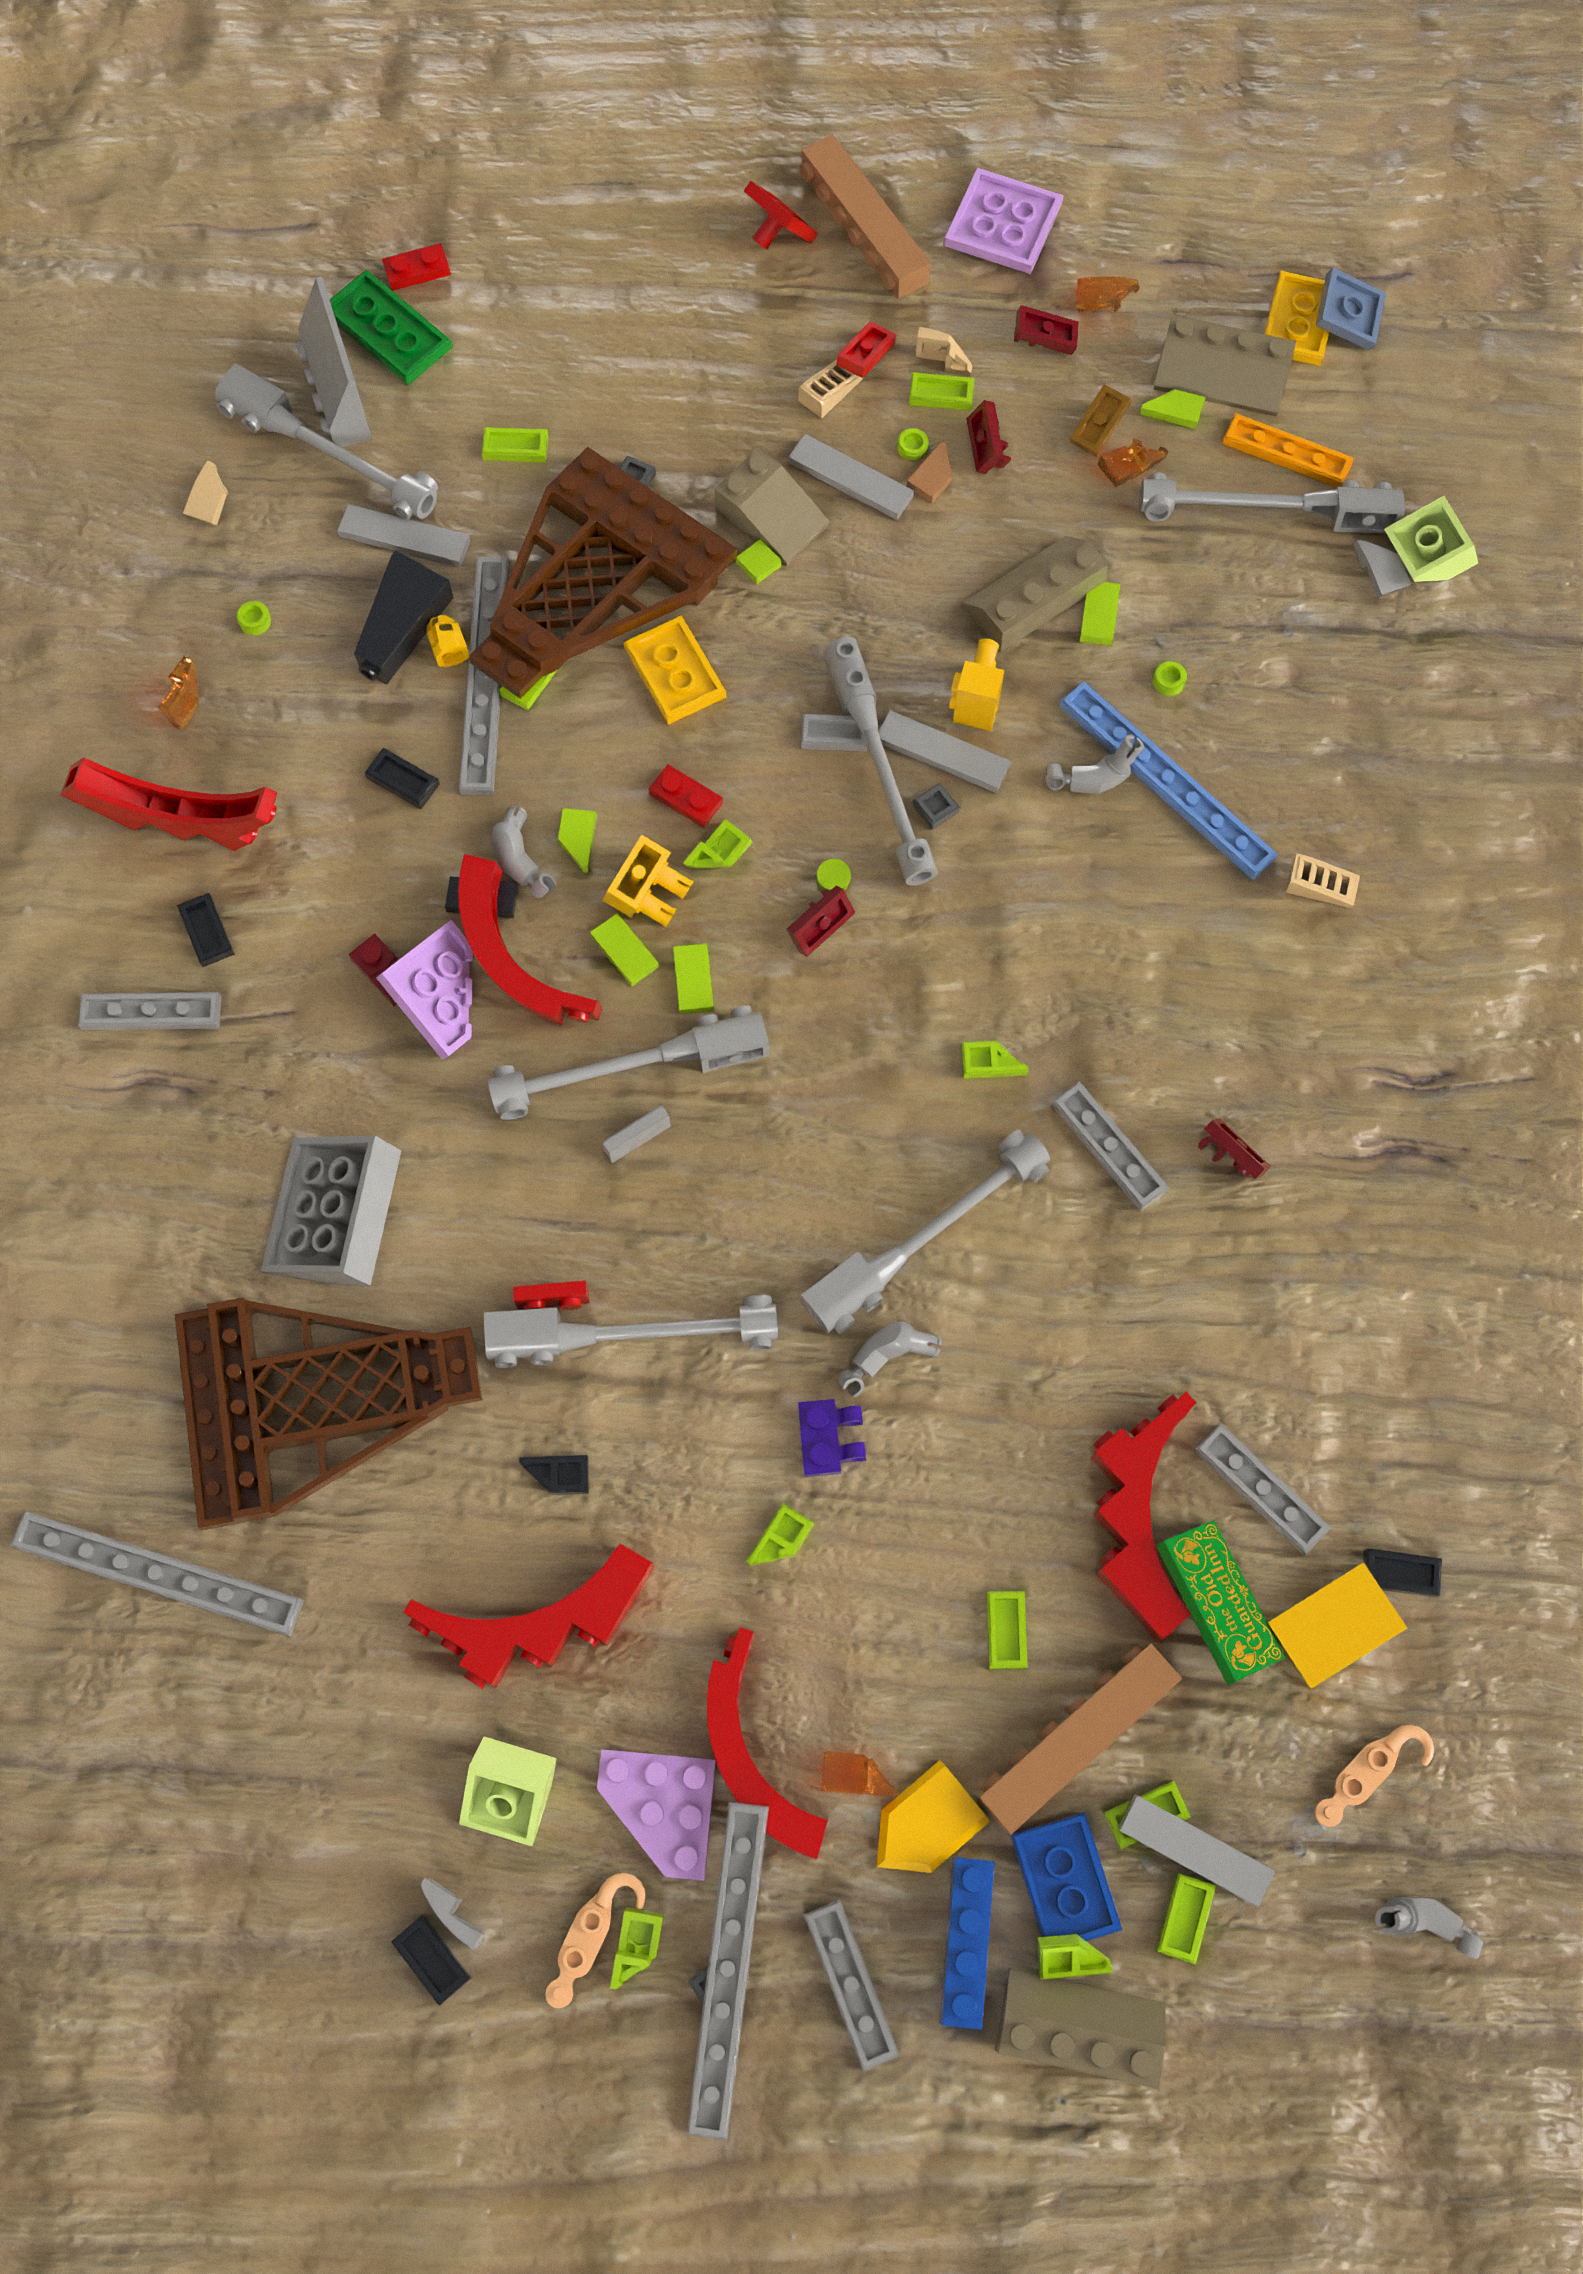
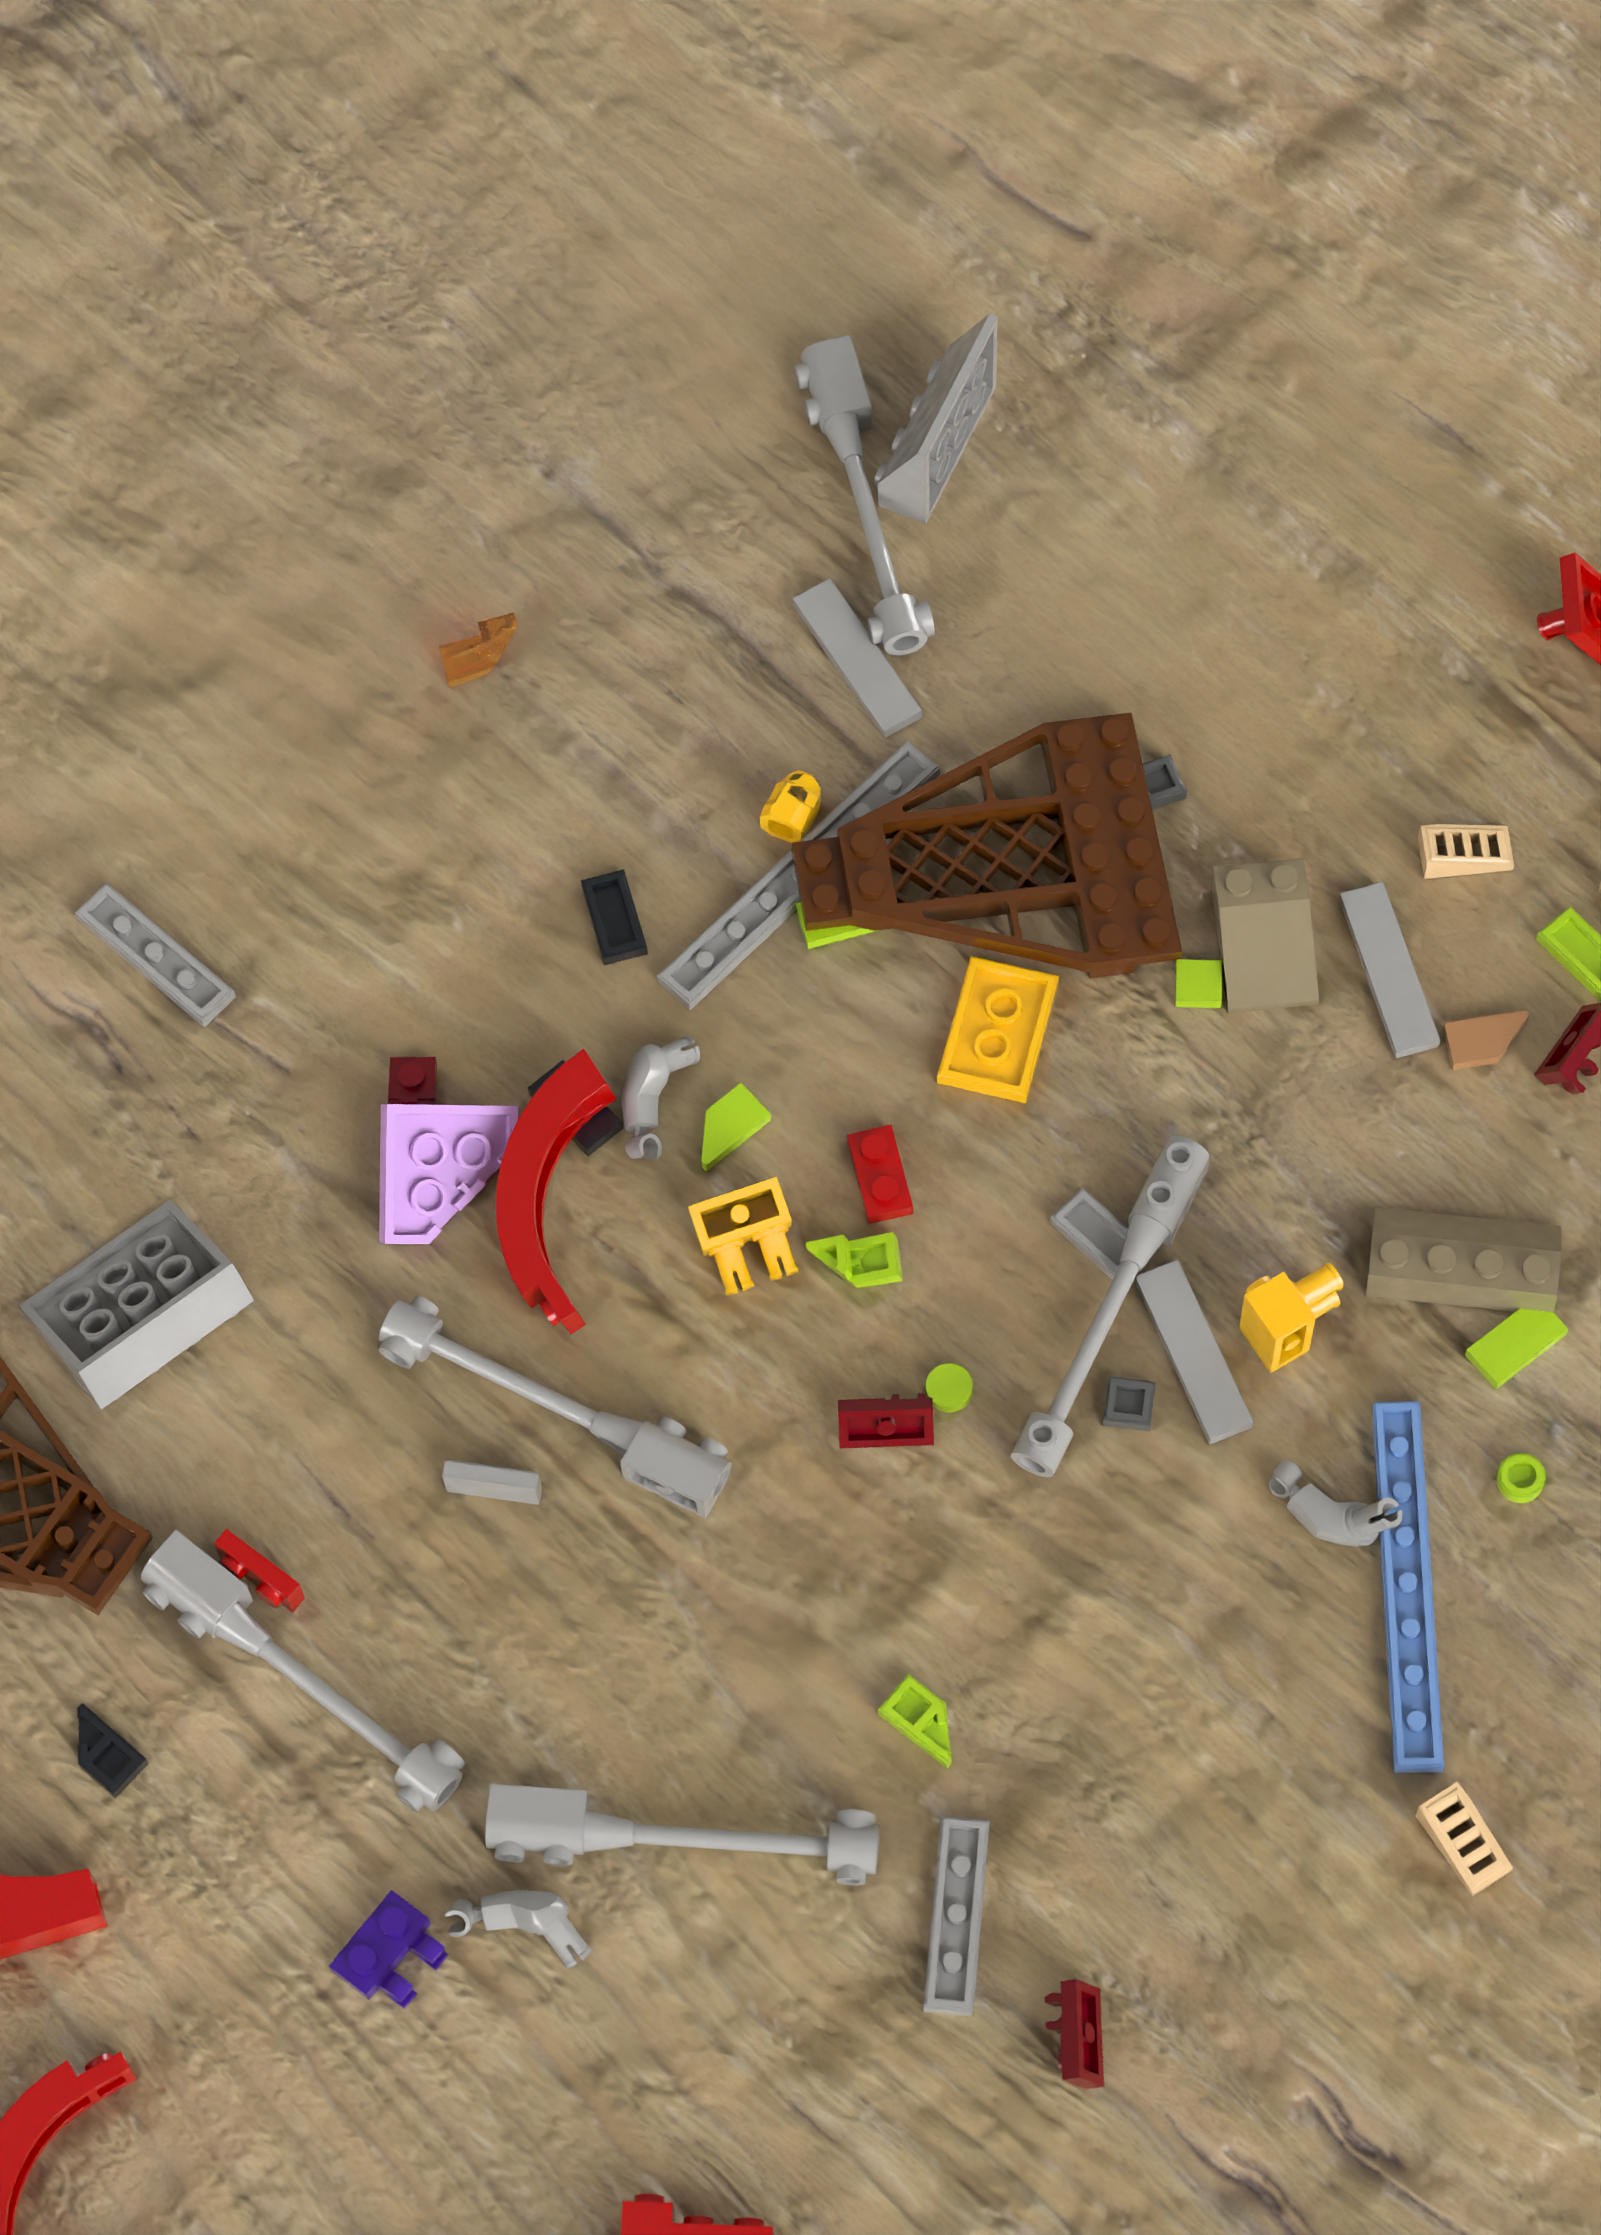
camera: 45 degrees right, 5 degrees down
(134, 803) = (328, 732): red arch -> none
(205, 930) = (281, 916): black tile -> none
(206, 496) = (698, 455): tan slope -> none
(253, 618) = (625, 625): lime tile -> none
(388, 327) = (1054, 412): green tile -> none
(400, 616) = (766, 742): black slope -> none
(416, 266) = (1147, 368): red plate -> none
(515, 444) = (1065, 648): lime tile -> none
(624, 949) = (663, 1283): lime tile -> none
(693, 978) = (703, 1372): lime tile -> none
(781, 1537) = (250, 2007): lime tile -> none
(866, 349) = (1540, 840): red plate -> none
(912, 444) = (1494, 987): lime tile -> none

